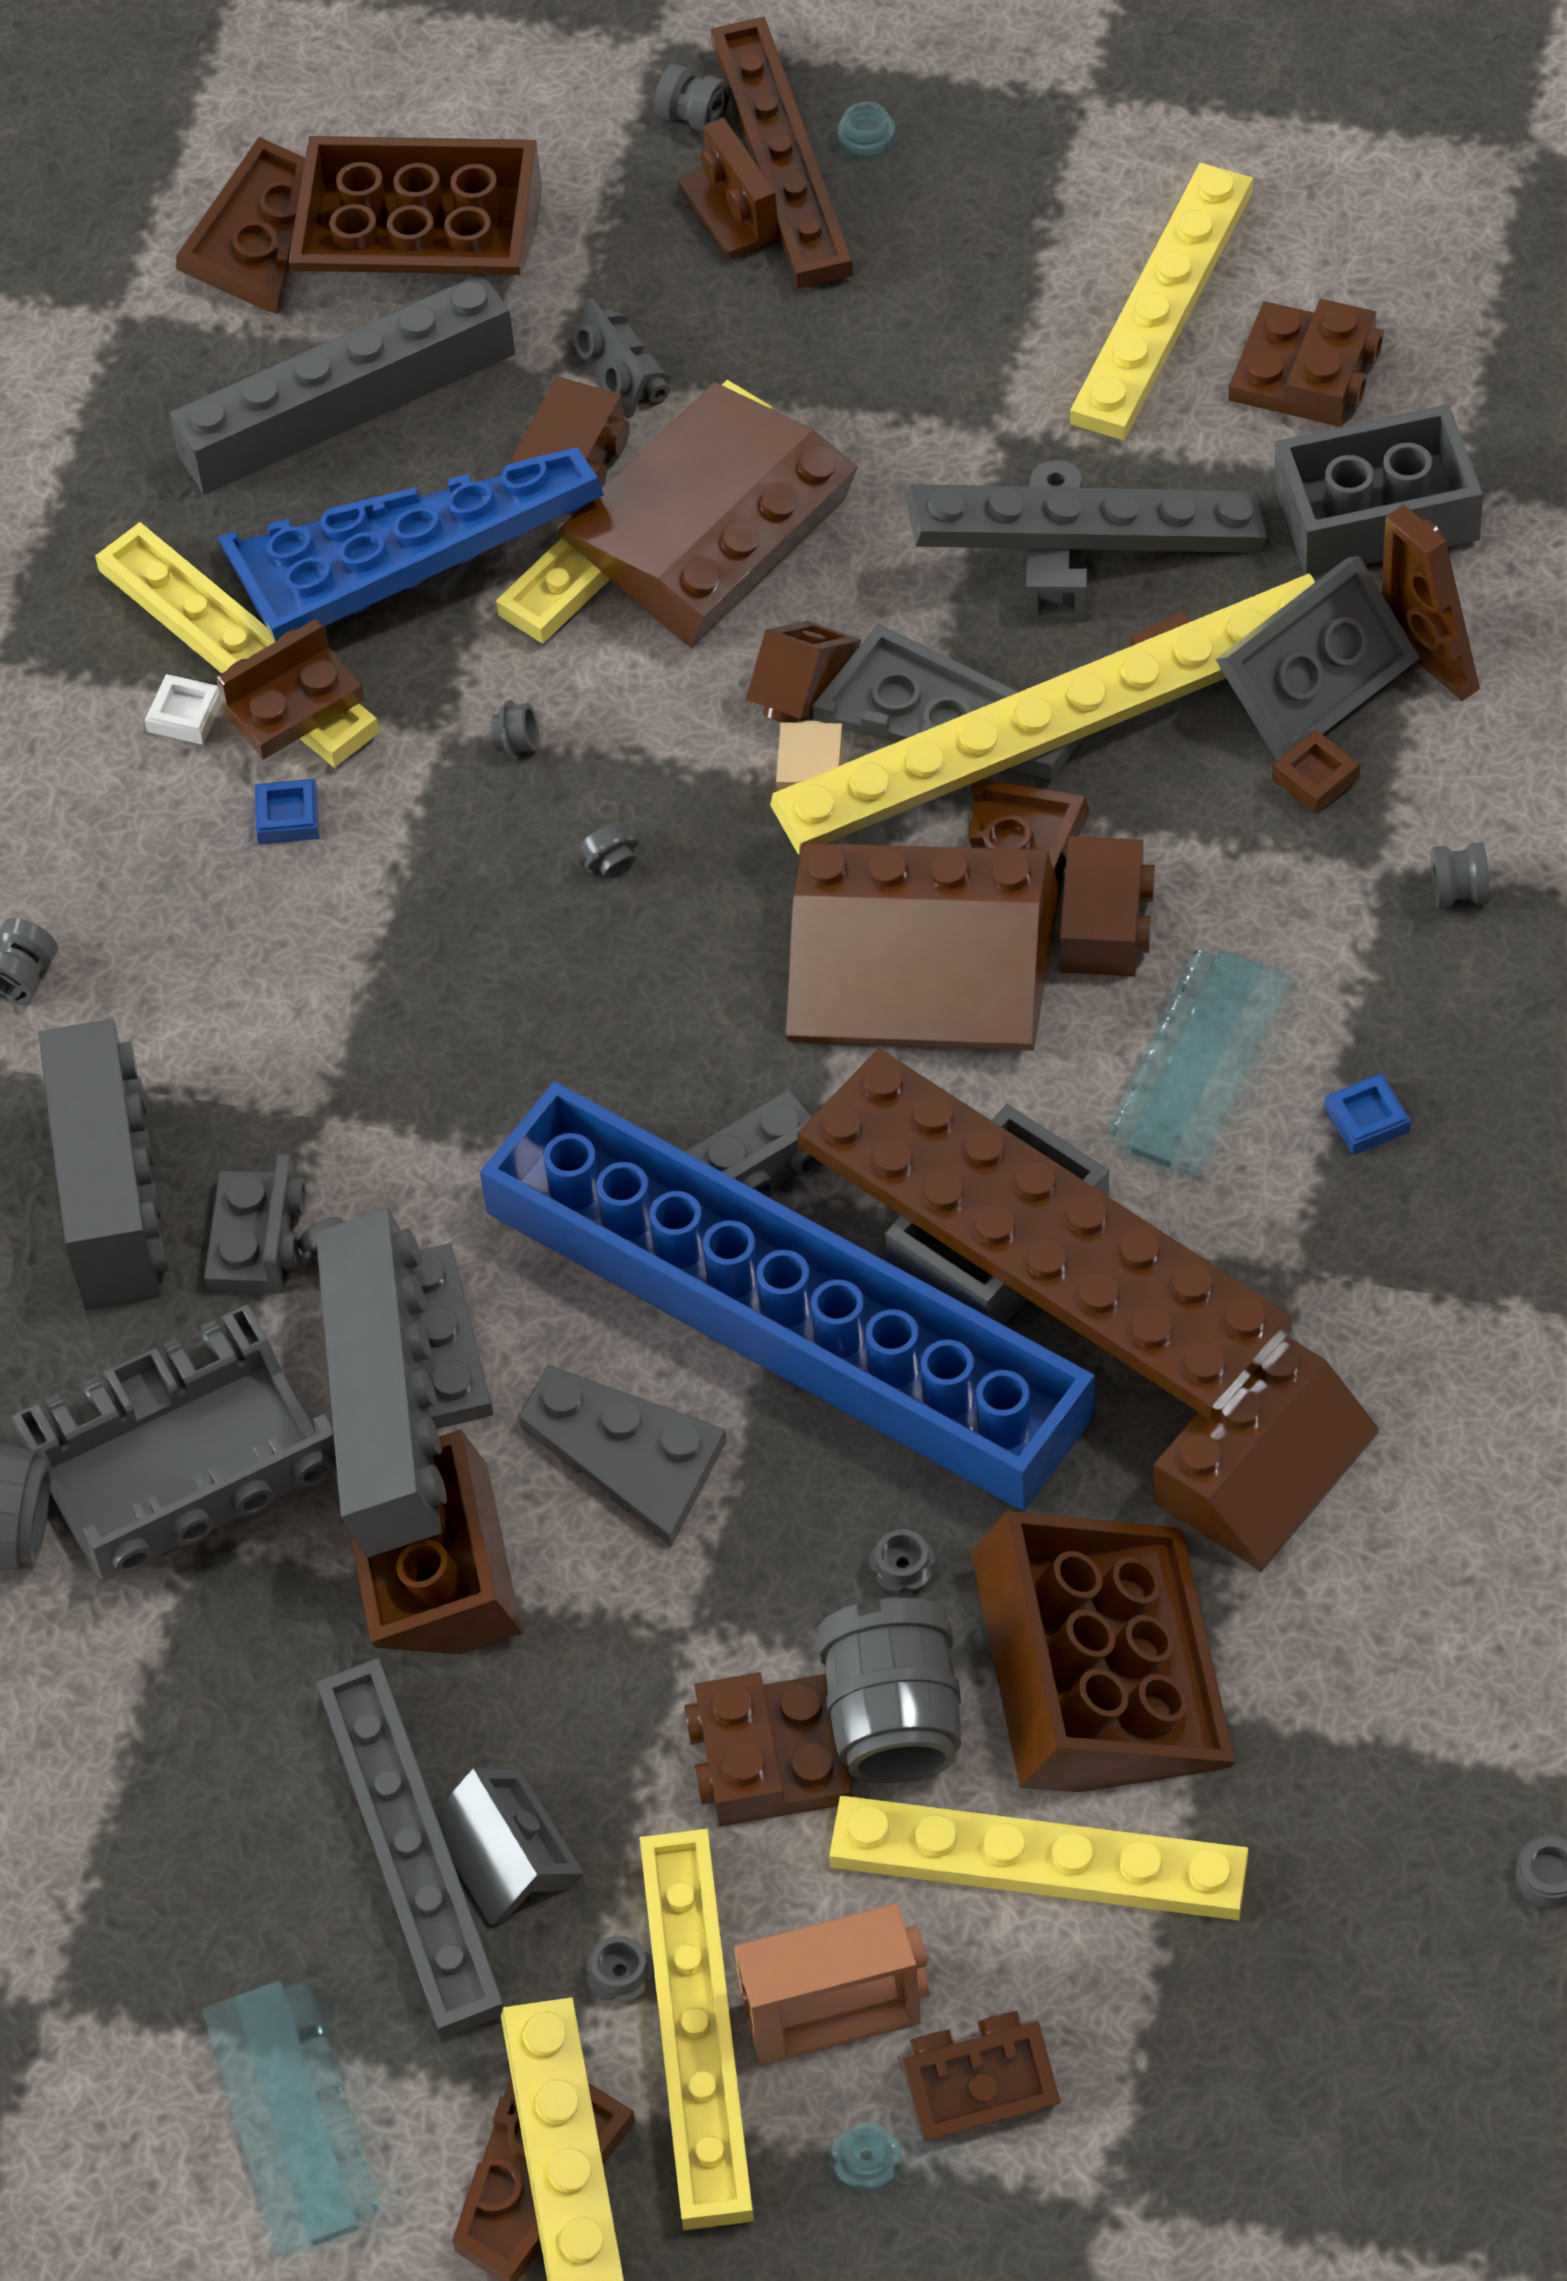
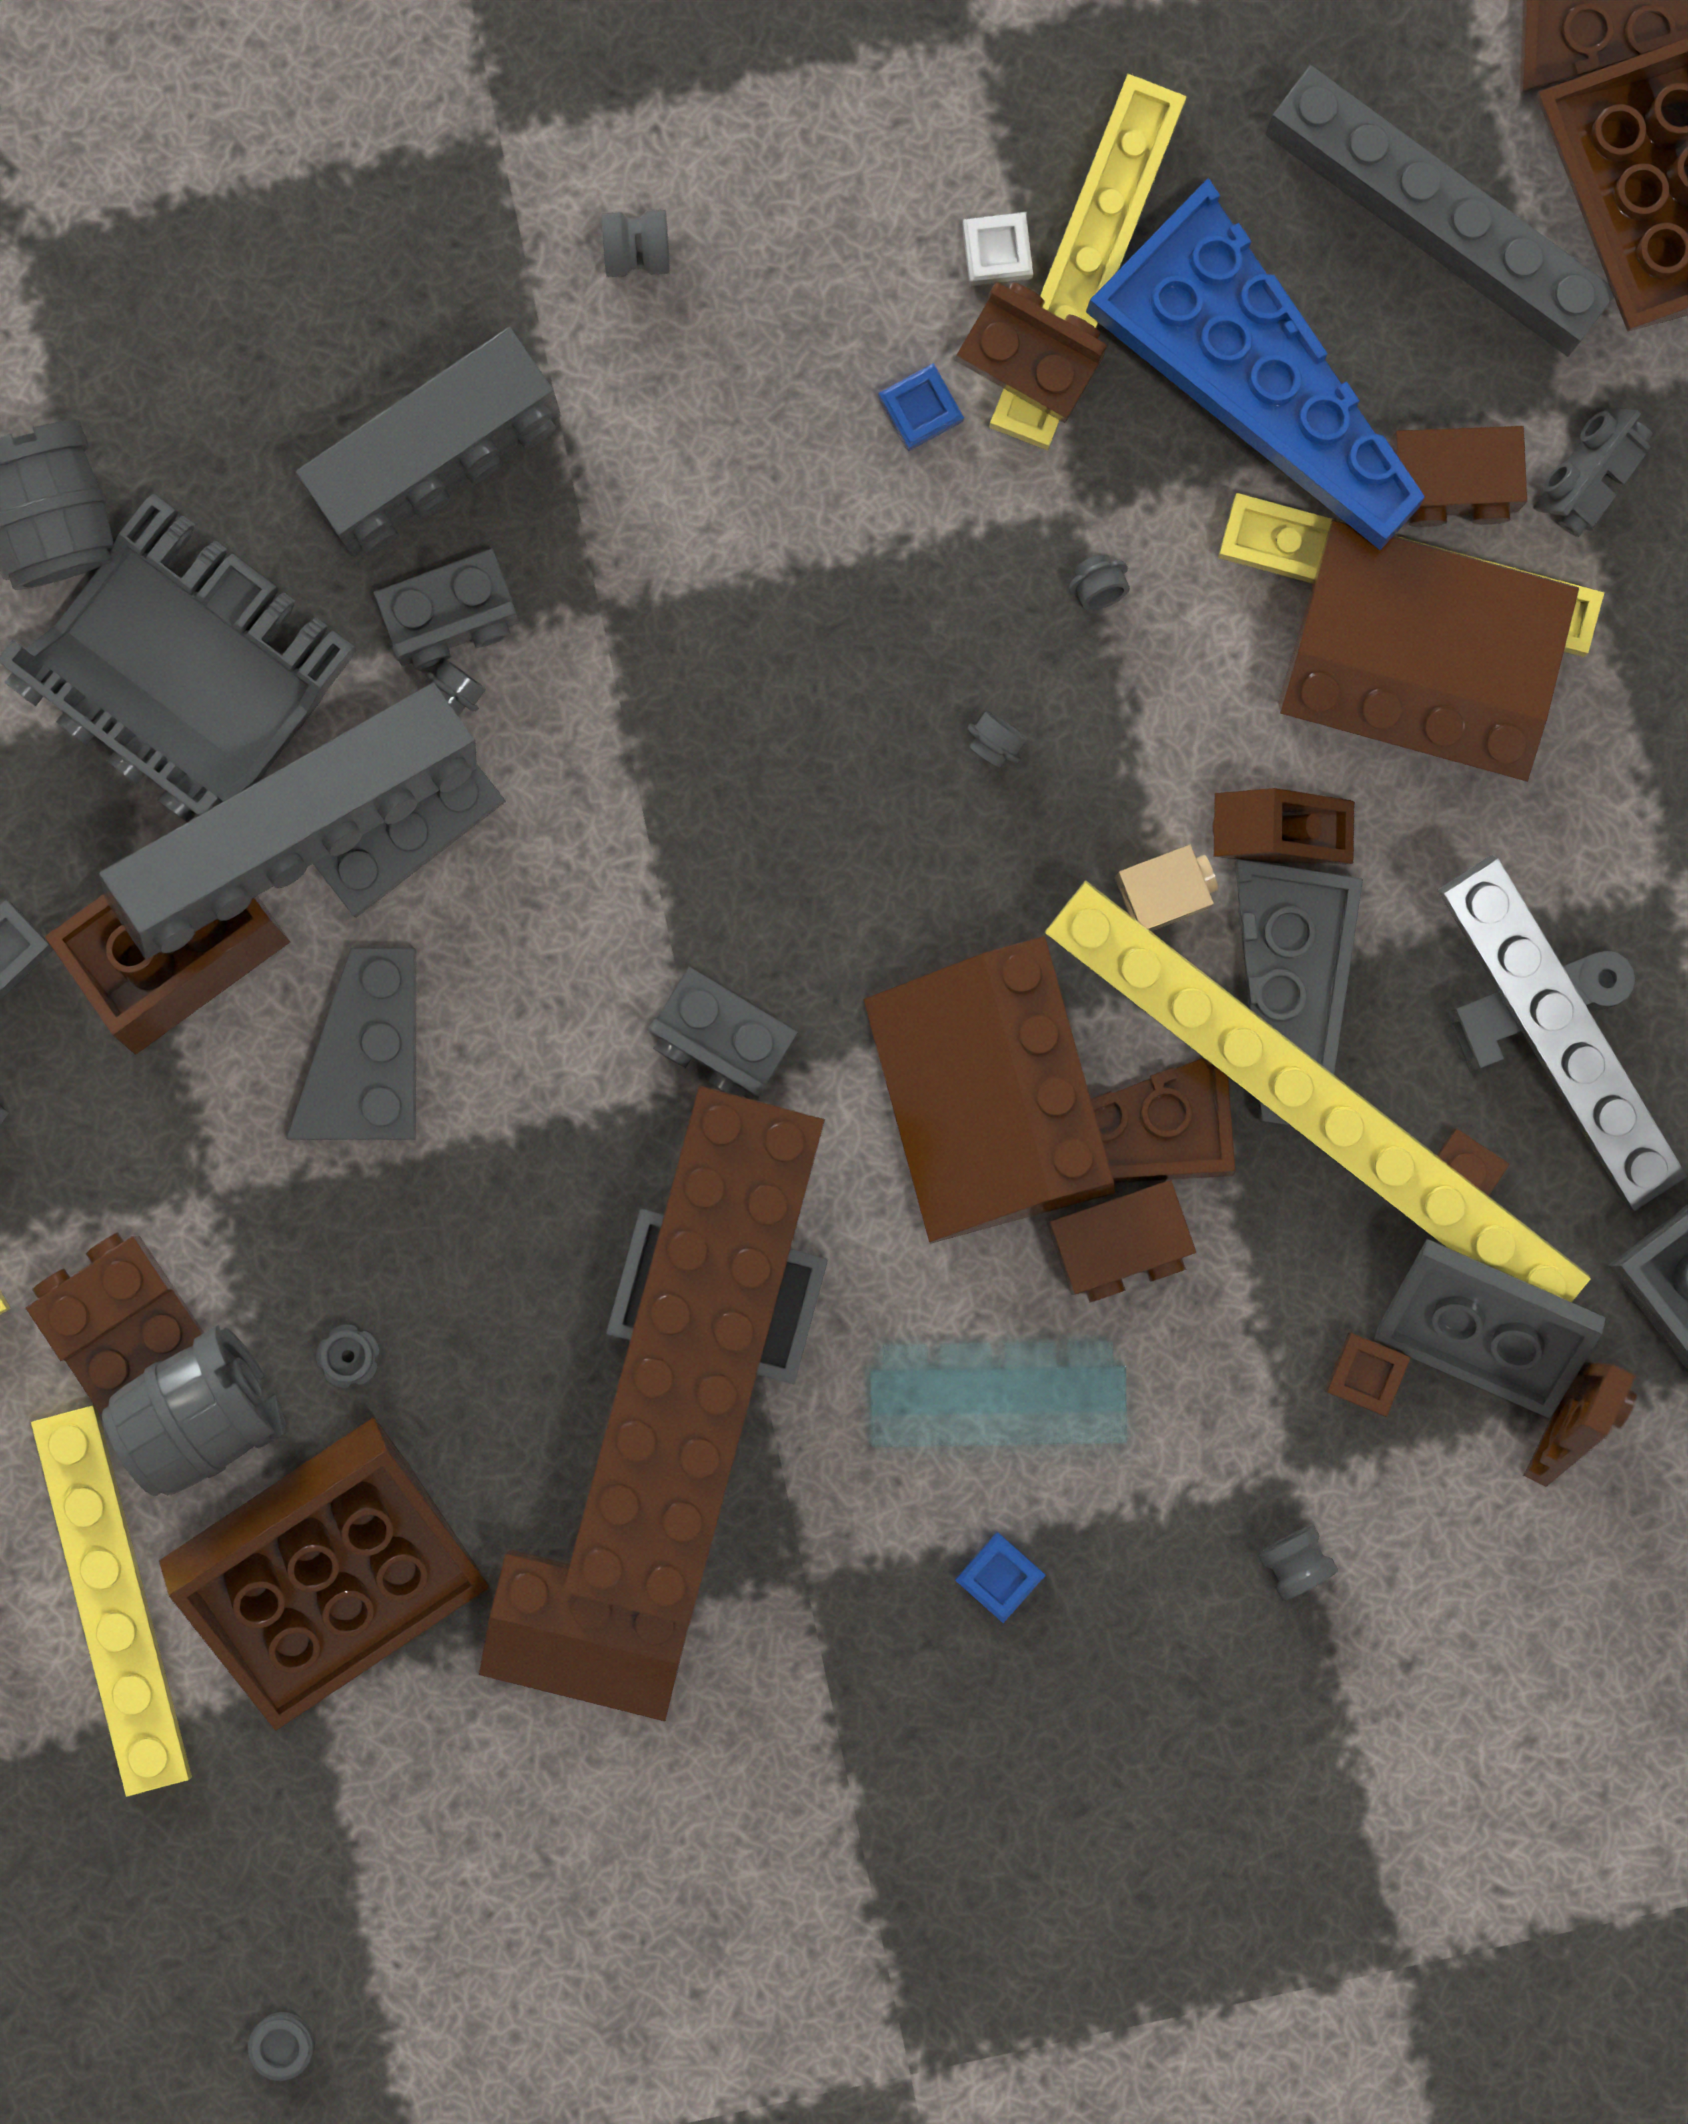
camera: 55 degrees right, 30 degrees up
(790, 1295) = (561, 1135): blue brick -> none

